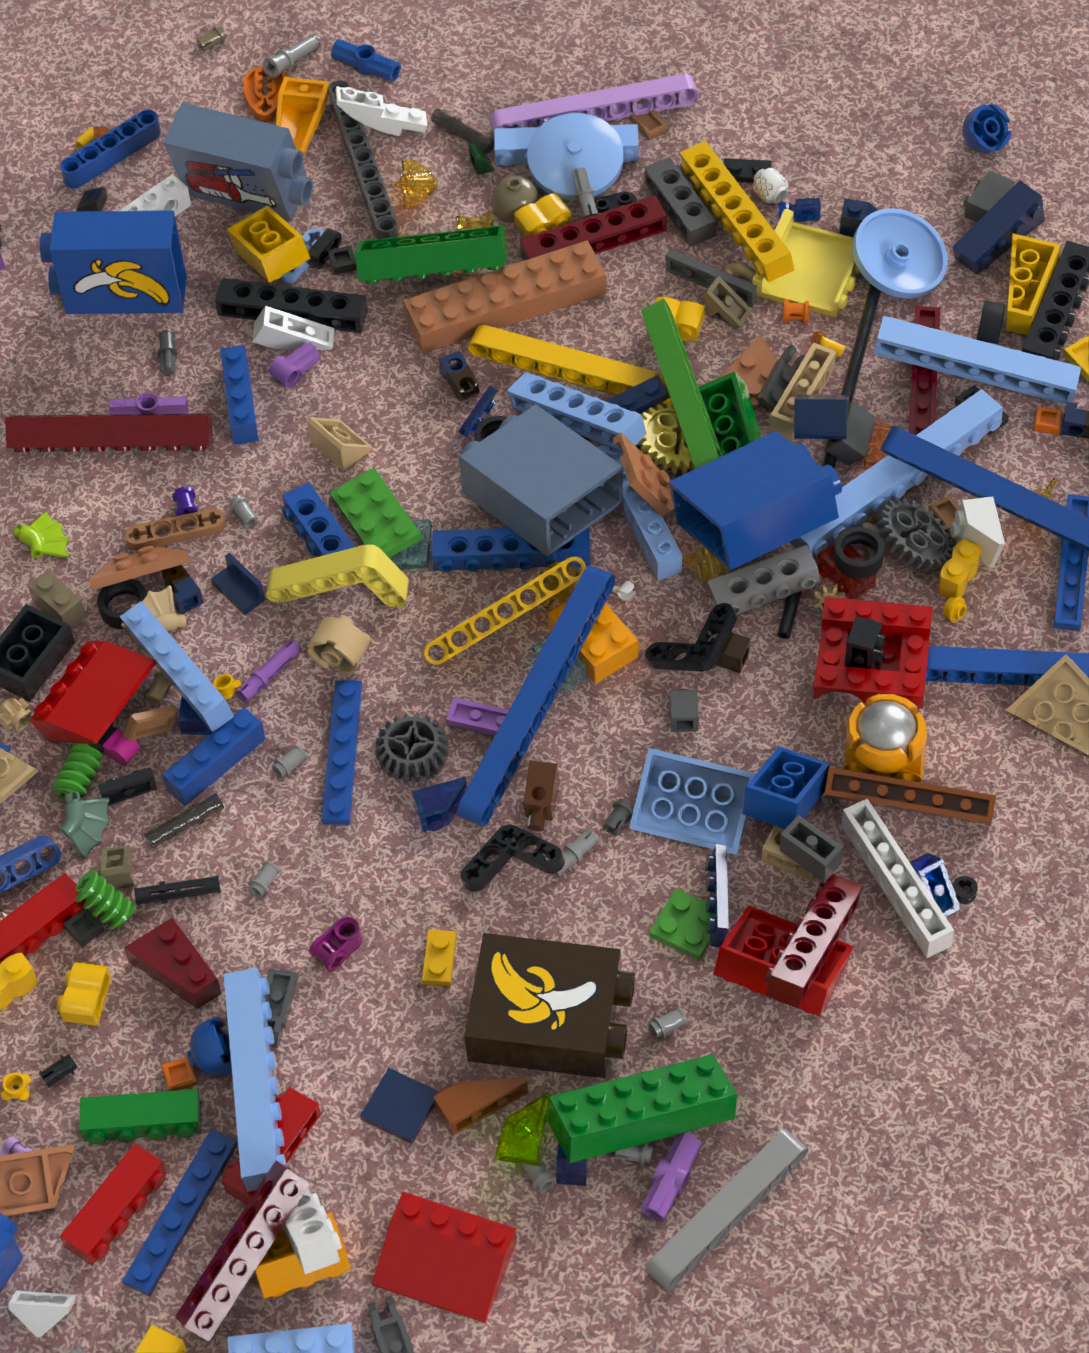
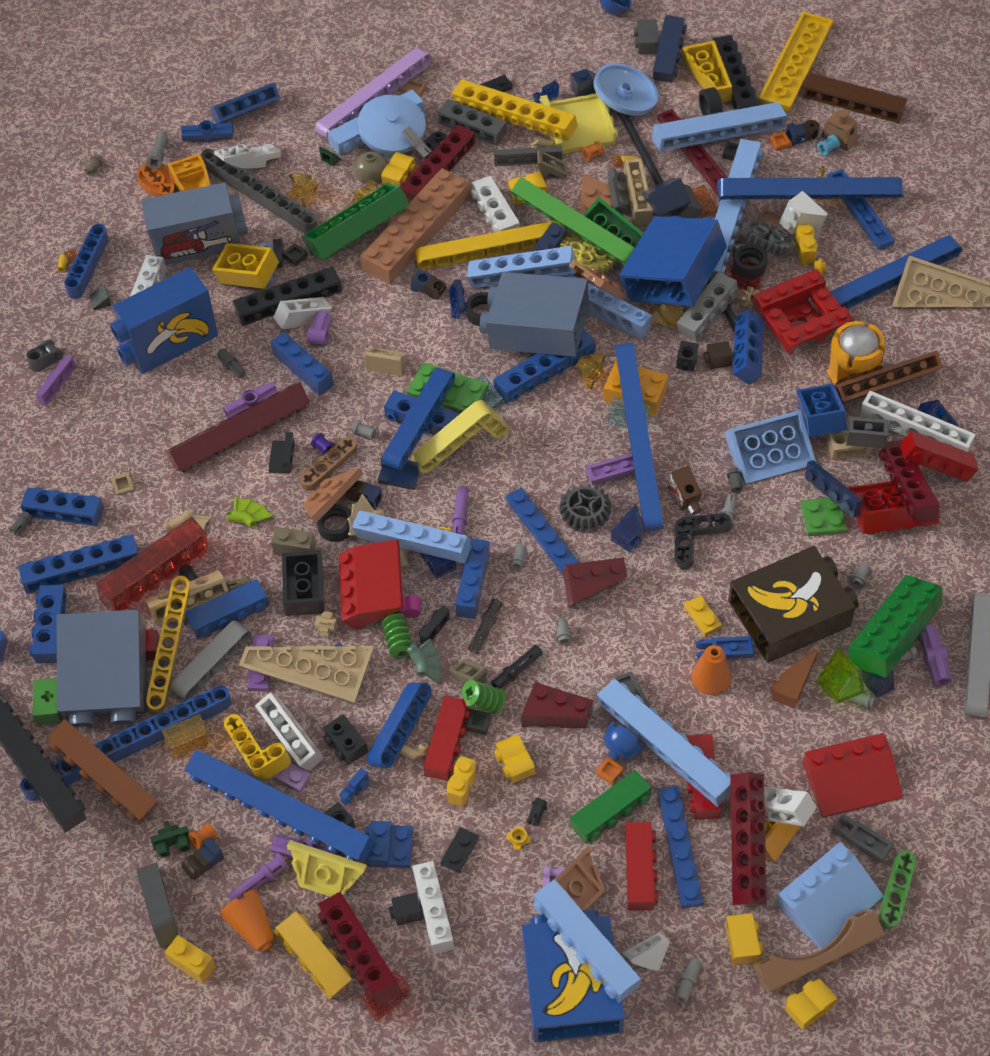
camera: 35 degrees left, 0 degrees up
(135, 491) = (282, 455): none -> black panel
(150, 722) = (419, 580): medium nougat tile -> none
(301, 530) = (418, 418): none -> blue beam
(333, 947) = (639, 643): magenta piece -> none
(338, 644) = (494, 472): tan brick -> none
(343, 835) = (592, 577): none -> dark red wedge
(387, 1031) = (711, 672): none -> orange cone
(399, 1105) = (752, 709): dark blue tile -> none
(431, 1013) = (733, 646): none -> blue hinge
(433, 45) = (245, 102): none -> blue brick
(455, 126) = (303, 144): clear smoke pin -> none
(513, 599) = (572, 404): yellow beam -> none
(617, 318) = (494, 205): none -> white brick
(684, 710) = (722, 401): dark grey brick -> none
(690, 621) = (687, 356): none -> black brick
(701, 655) = (708, 360): black beam -> none
(770, 185) = (518, 87): white head -> none
(801, 637) = (748, 346): none -> blue brick
(865, 644) = (800, 307): black brick -> none
(880, 931) = (939, 456): none -> red brick
(965, 881) = (955, 408): black bush -> none

